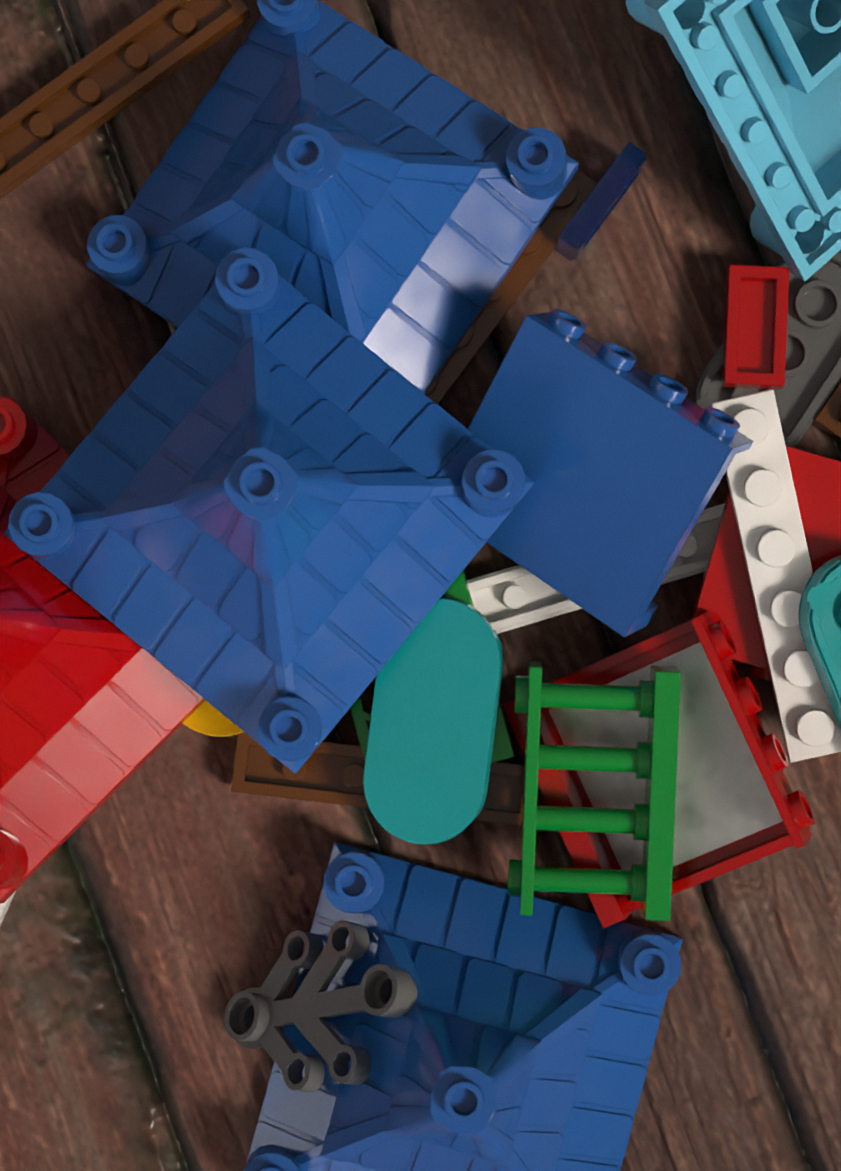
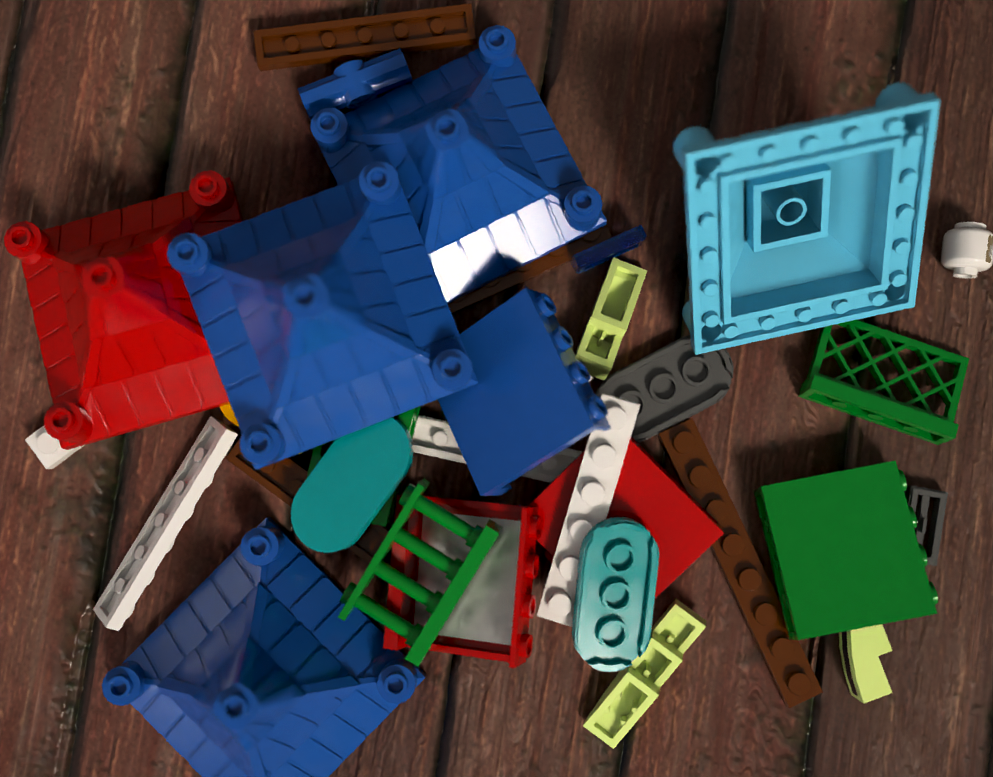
camera: 25 degrees right, 0 degrees up
(114, 166) = (356, 83): none -> blue piece
(197, 930) = (164, 523): none -> white plate
(258, 1013) = (171, 587): dark grey plant -> none
(656, 292) = (610, 317): none -> yellowish green slope
(755, 327) = (654, 364): red tile -> none

